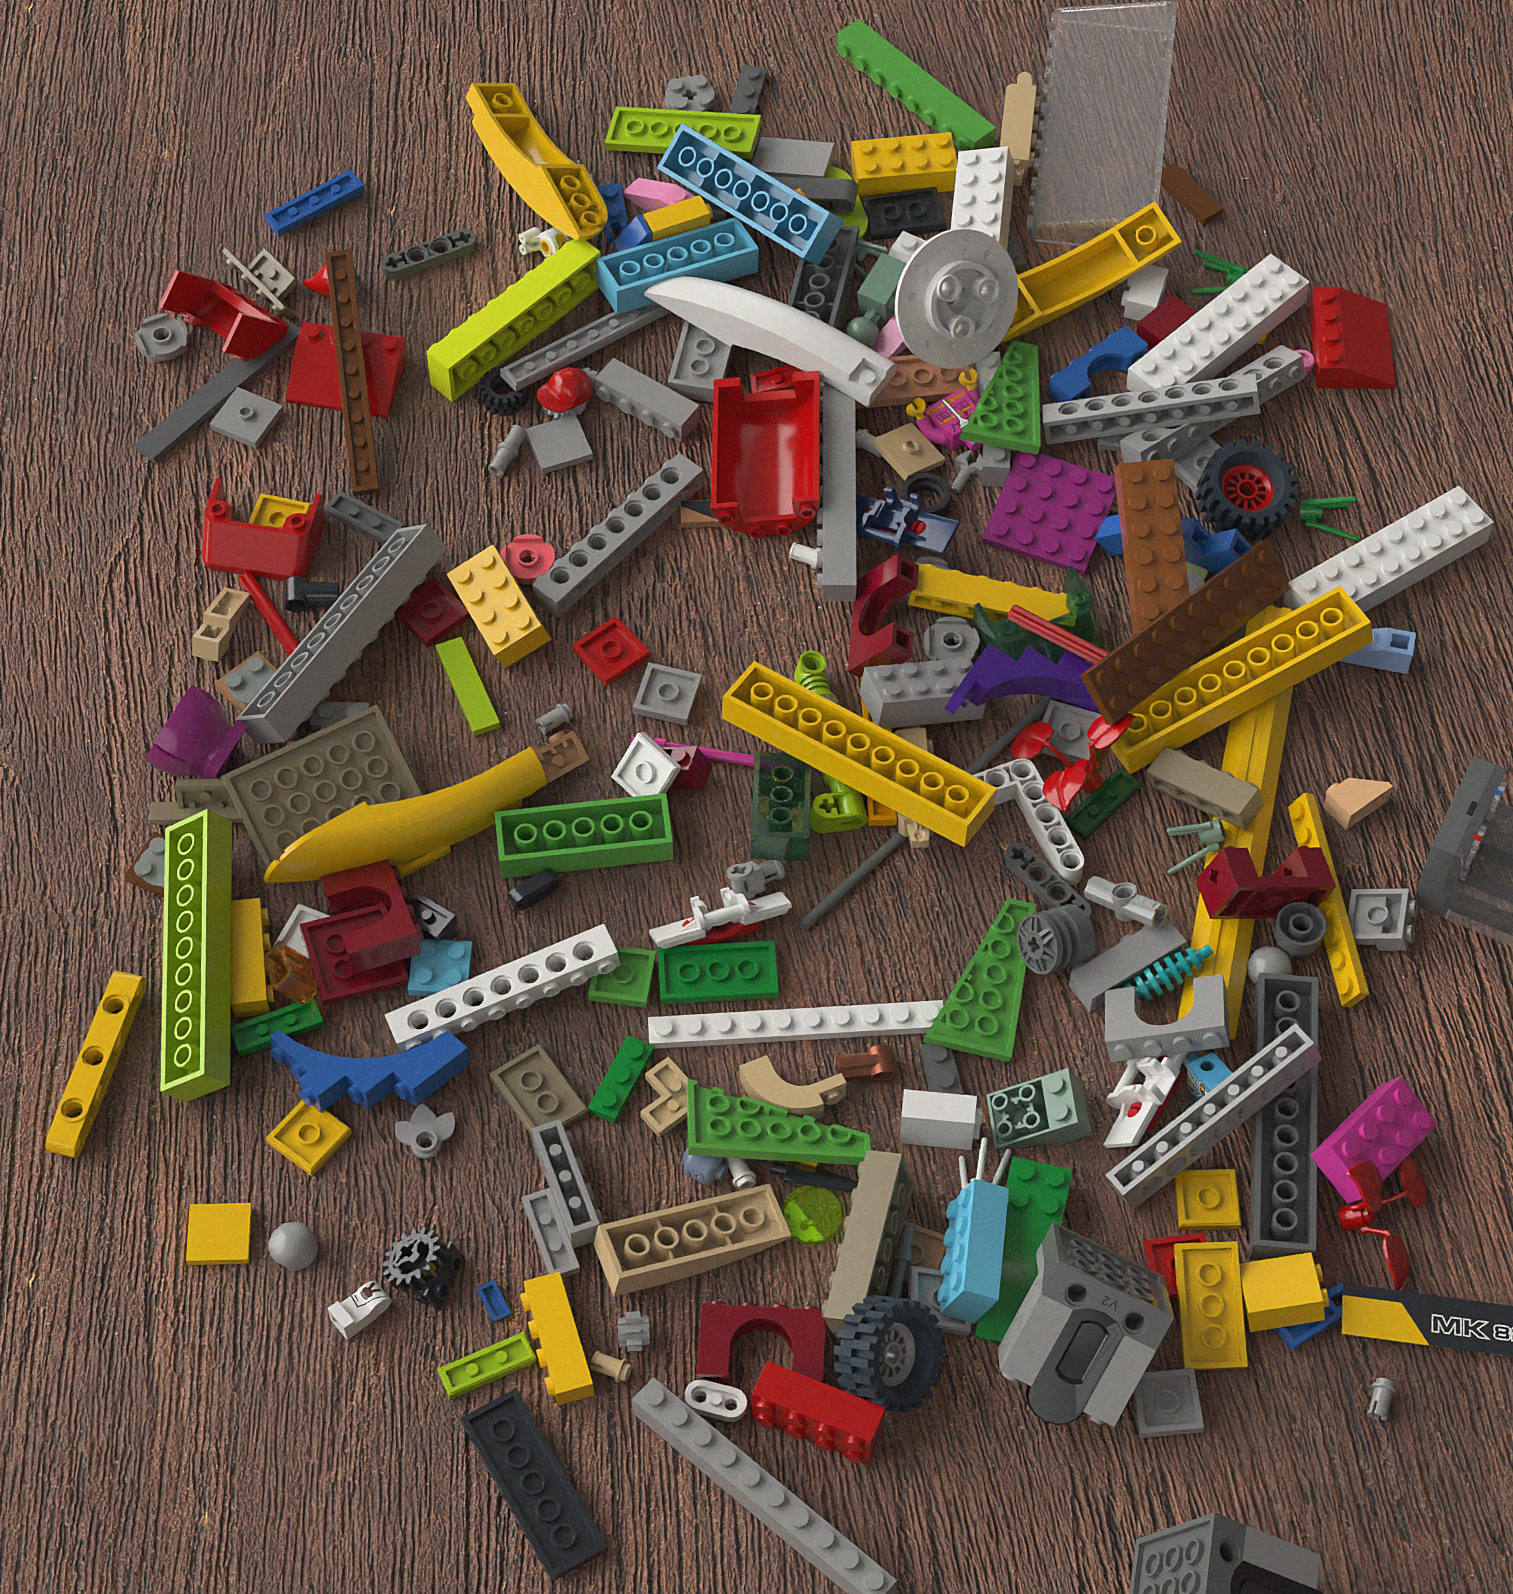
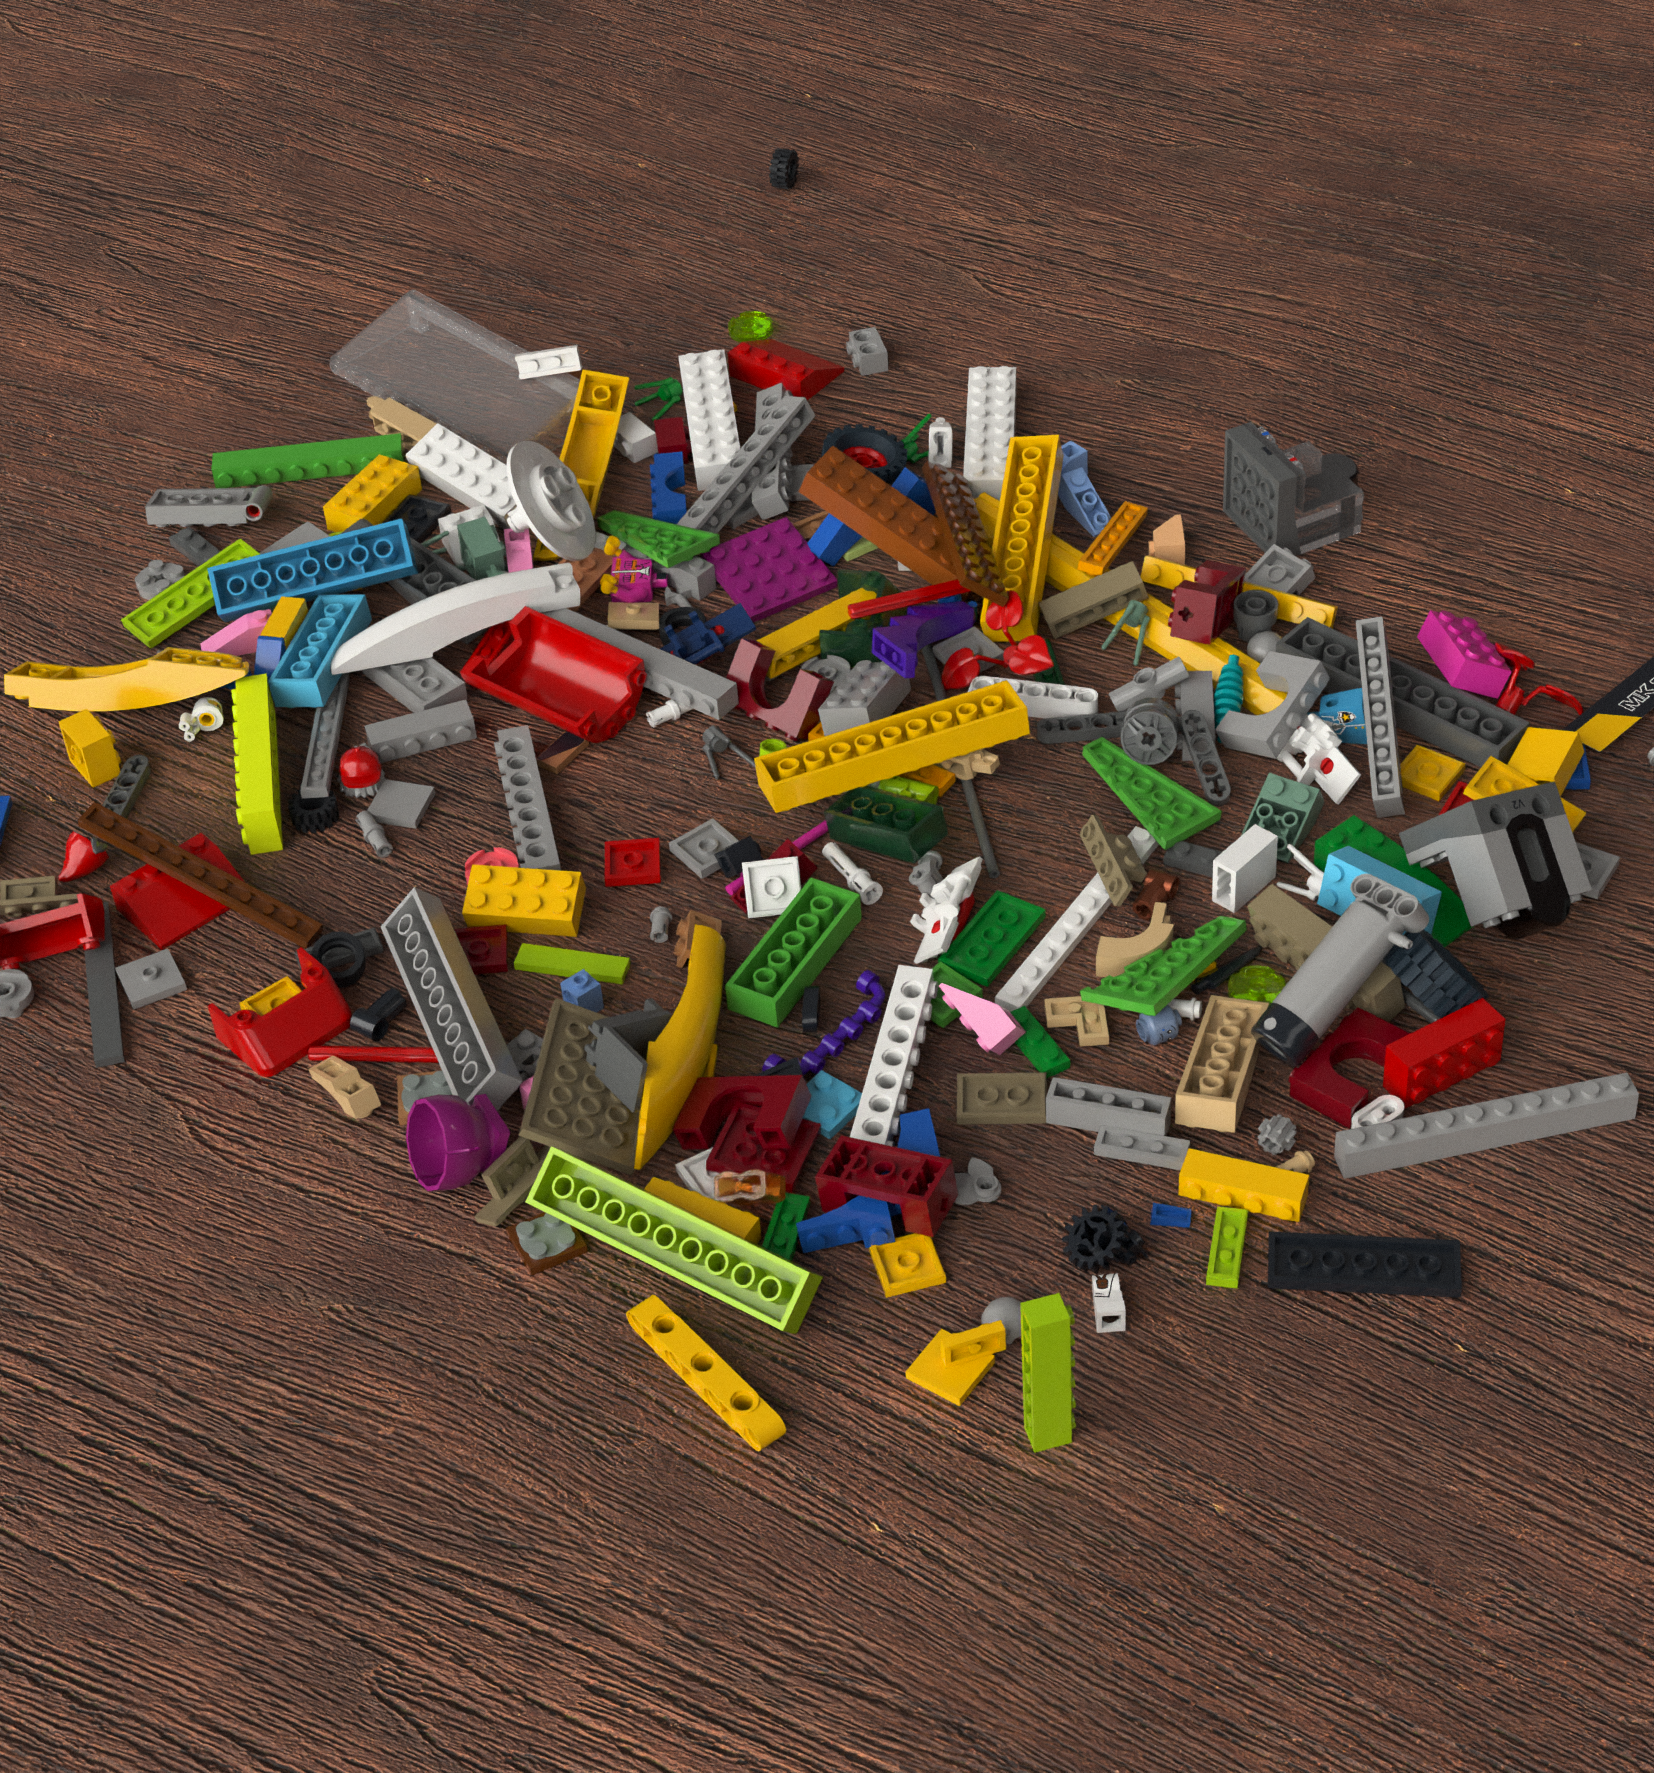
camera: 50 degrees left, 15 degrees down
(186, 1309) = (1047, 1371): none -> lime brick
(229, 1229) = (973, 1343): none -> yellow plate
(331, 512) = (347, 941): none -> black tyre
(359, 1091) = (916, 1181): none -> dark red plate
(373, 782) = (622, 1050): none -> dark grey piece
(428, 717) = (583, 991): none -> medium blue brick
(446, 196) = (90, 747): none -> yellow brick
(535, 931) = (849, 1027): none -> dark purple bar
(604, 1025) = (990, 1021): none -> bright pink slope
(666, 724) = (733, 856): none -> black brick
(714, 827) = (857, 879): none -> white pin
(794, 62) = (207, 506): none -> light grey hinge
(801, 616) = (717, 741): none -> dark grey plant
(818, 1268) = (1338, 967): none -> light grey piece
(873, 1011) = (1113, 859): none -> dark tan bracket
(1067, 1006) = (1206, 757): none -> dark grey beam
(1152, 168) = (548, 362): none -> white hinge
(1310, 751) = (1112, 539): none -> light orange plate
(1335, 530) = (940, 442): none -> white piece
(1353, 699) = (1083, 501): none -> light blue slope
(1389, 277) = (750, 326): none -> clear neon green tile
(1428, 389) = (867, 351): none -> light grey brick

